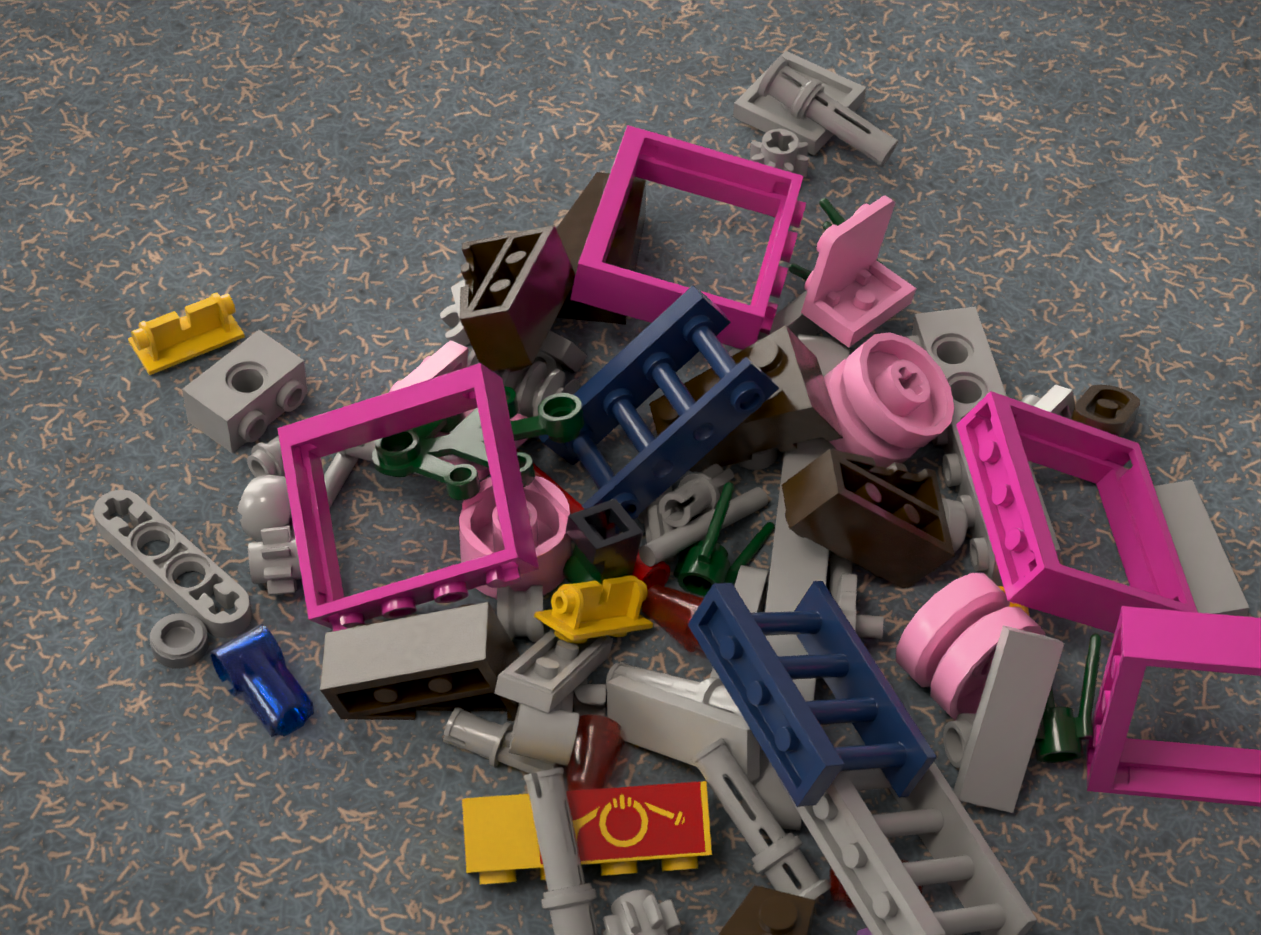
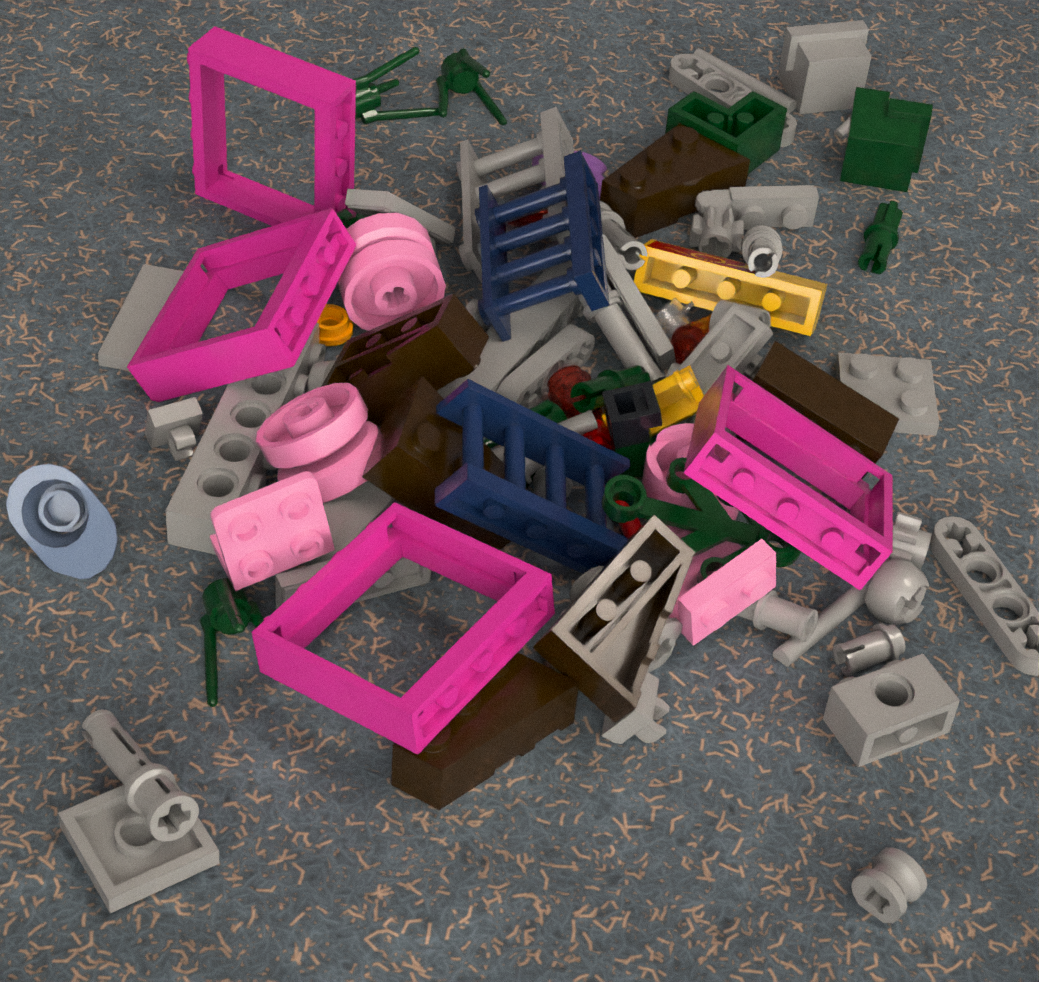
camera: 160 degrees left, 5 degrees down
(175, 339) = (936, 809): yellow hinge -> none
(179, 640) = (1002, 533): flat silver tile -> none
(210, 251) = (889, 885): none -> light grey wheel
(260, 675) = (938, 473): clear blue piece -> none
(349, 784) = (895, 384): none -> light grey plate
(637, 764) = (673, 316): none -> clear plate
(650, 610) = (605, 381): none -> dark green axle
(781, 150) = (217, 766): light grey gear -> none
(1069, 303) = (57, 500): none -> sand blue piece
(1107, 409) = (126, 404): dark brown plate -> none

